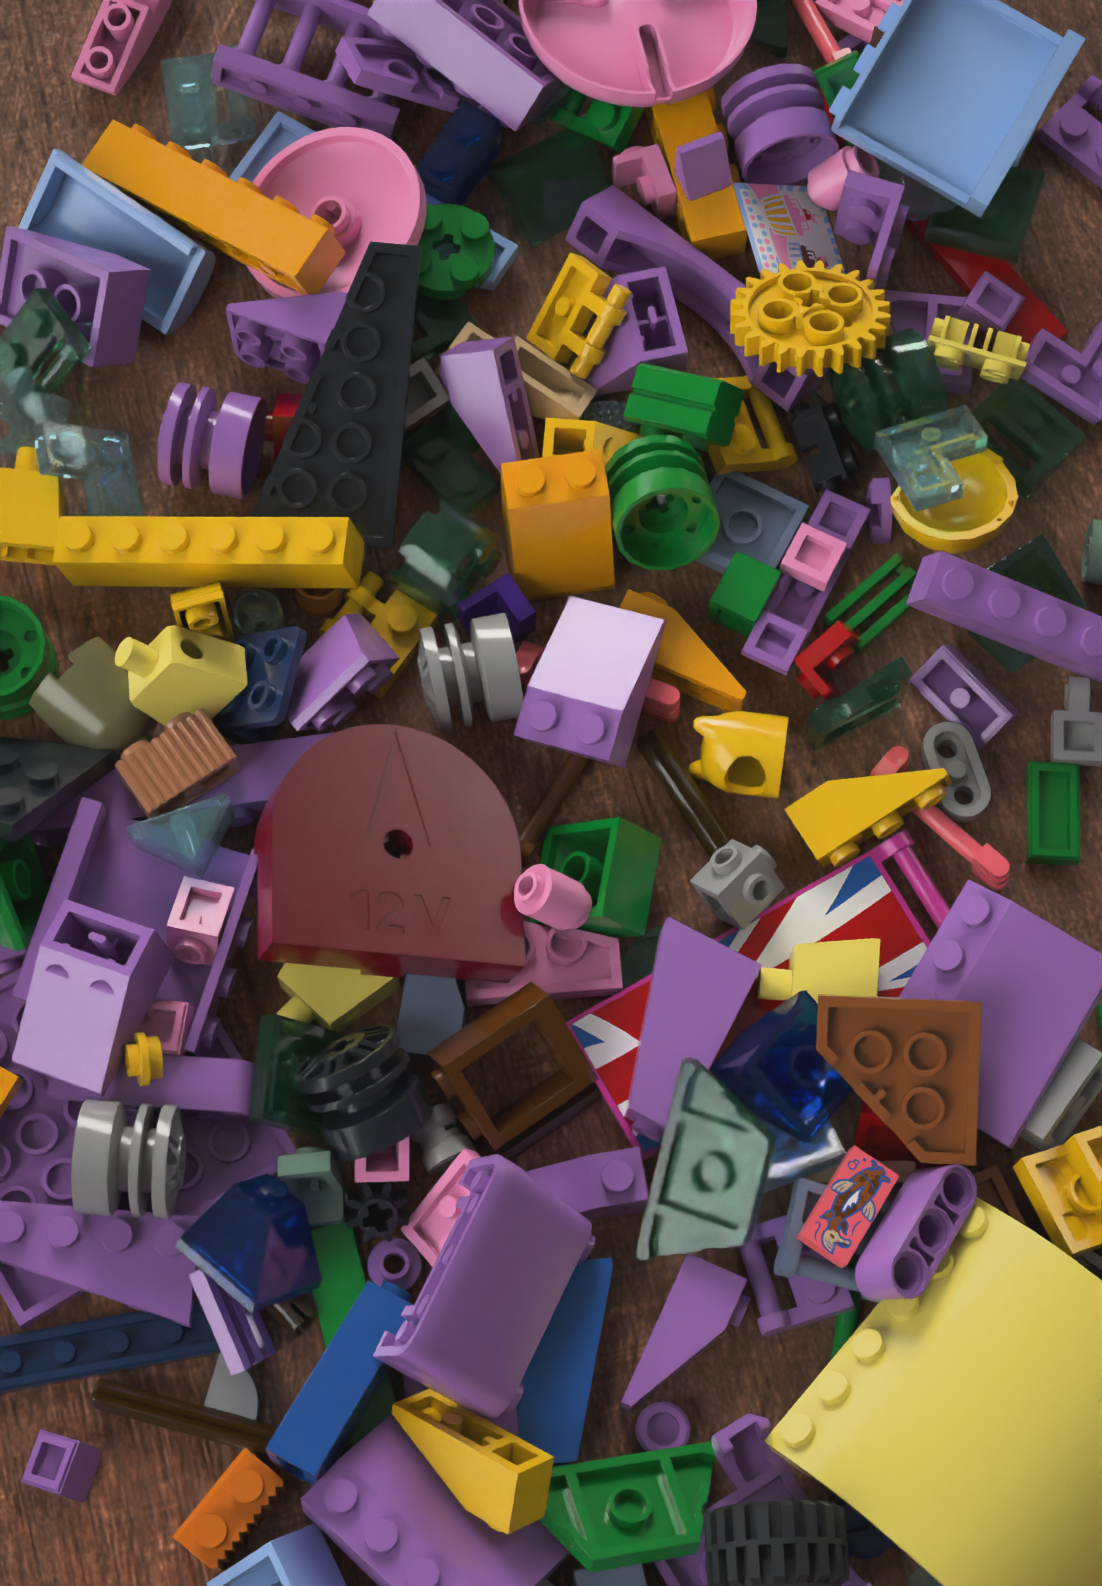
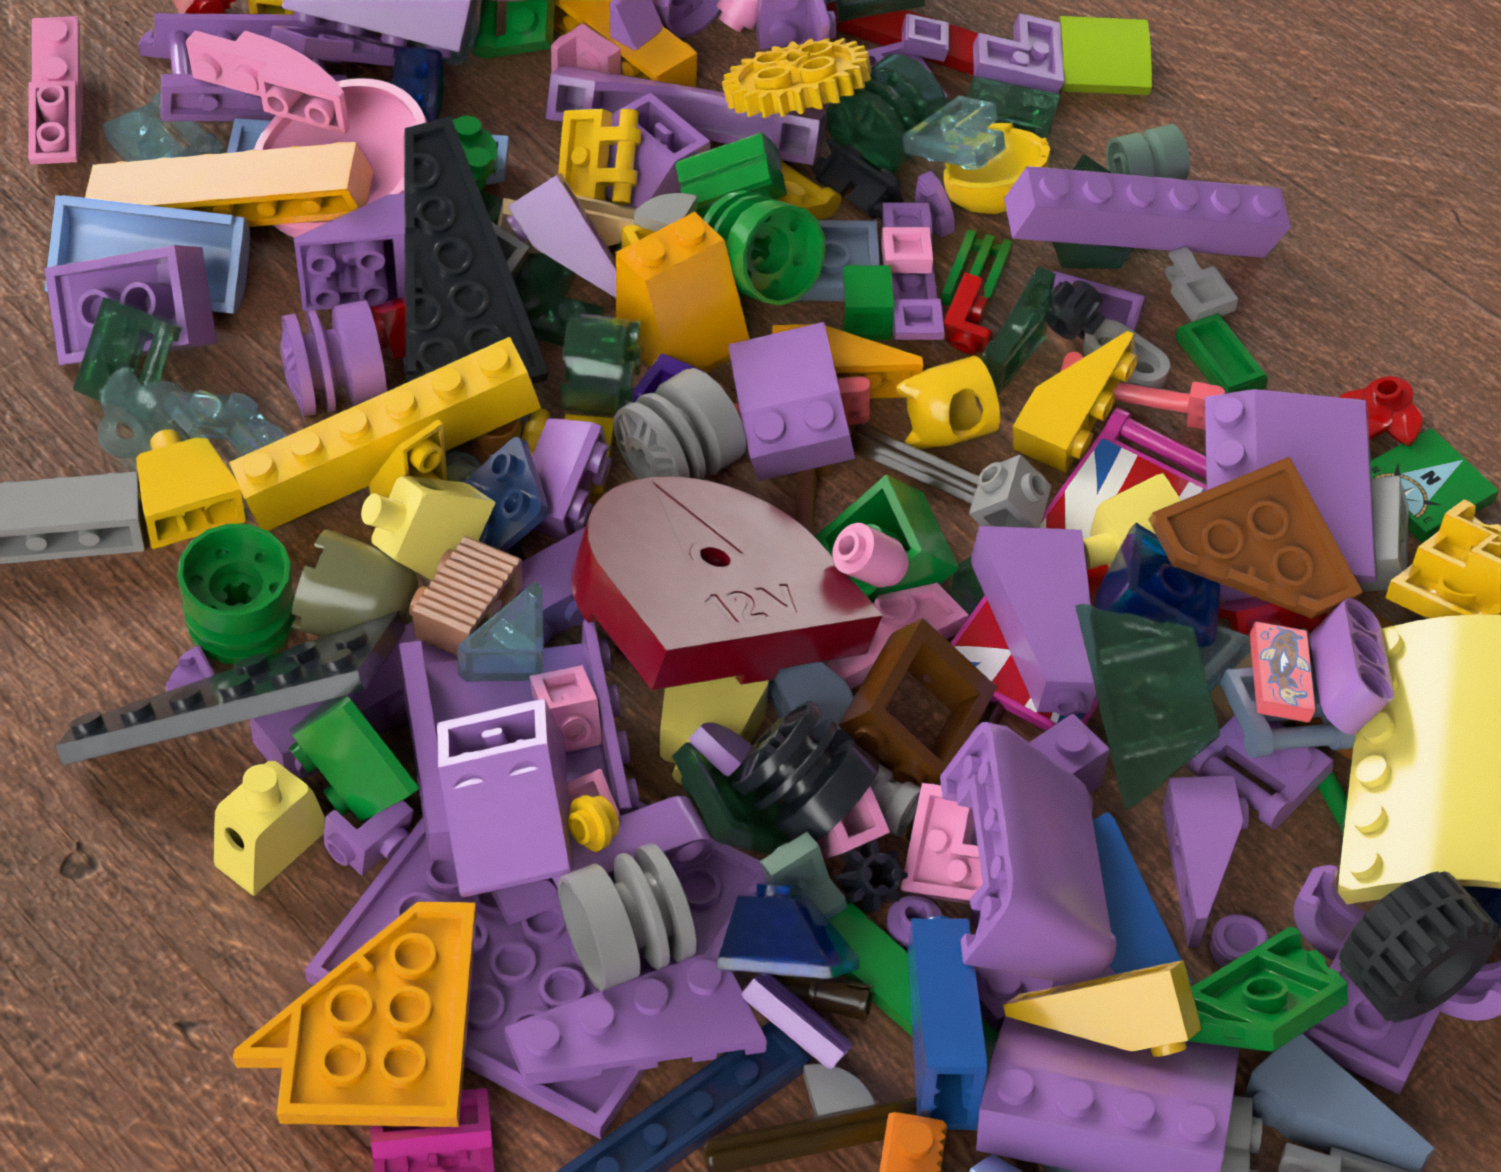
camera: 30 degrees left, 20 degrees down
(308, 104) = (278, 74): none -> bright pink slope
(309, 1029) = (720, 746): none -> medium lavender tile
(548, 183) = (505, 91): clear green slope -> none
(592, 424) = (664, 210): none -> light grey tile
(786, 226) = (715, 44): sticker -> none
(930, 703) = (1075, 310): none -> black gear
(1004, 361) = (952, 58): light yellow hinge -> none

